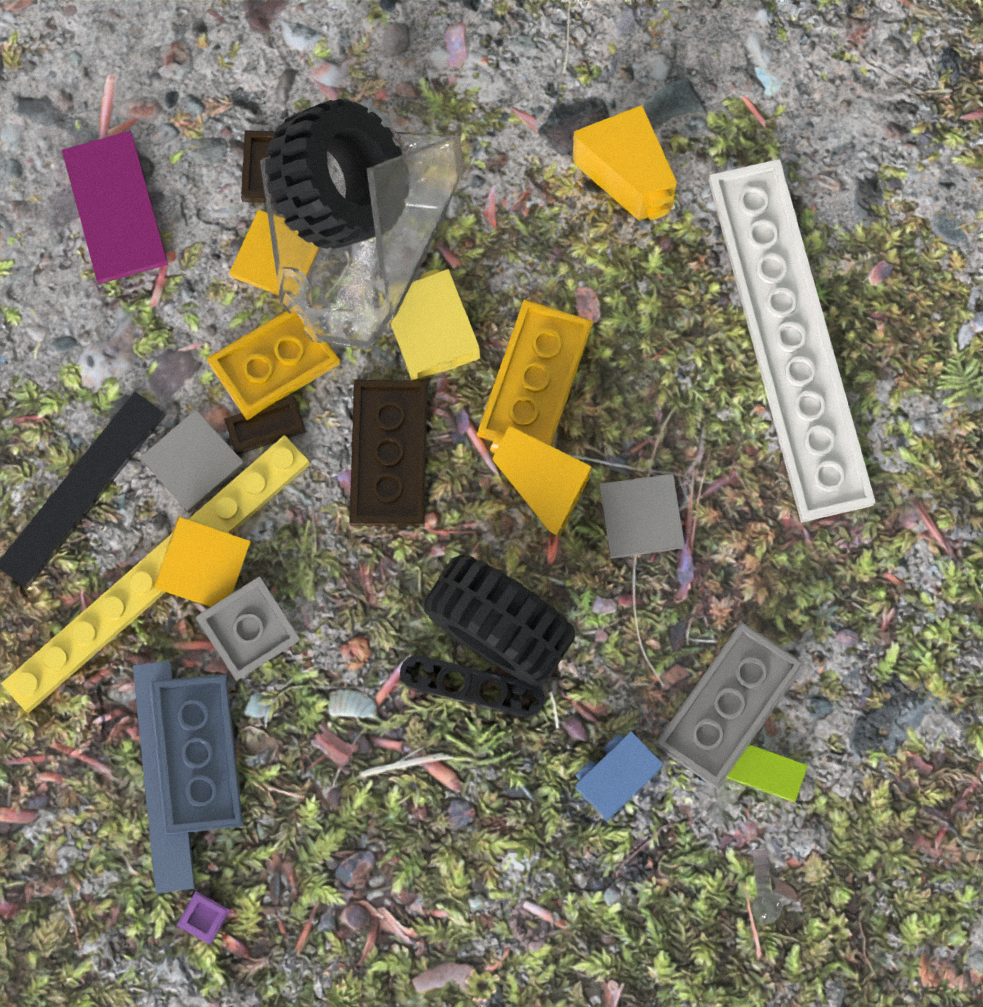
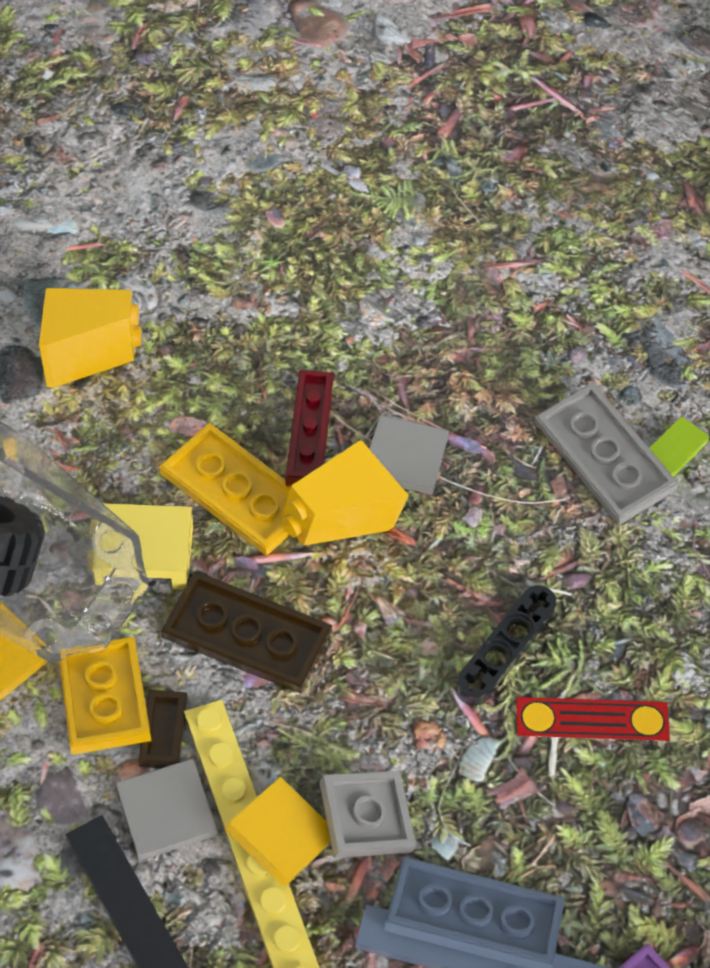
camera: 75 degrees left, 20 degrees down
(432, 792) = (592, 719): none -> sticker
(499, 619) = (467, 570): black tyre -> none
(618, 775) = (639, 555): medium blue brick -> none
(628, 415) = (309, 424): none -> dark red tile
(791, 341) = (302, 290): white plate -> none

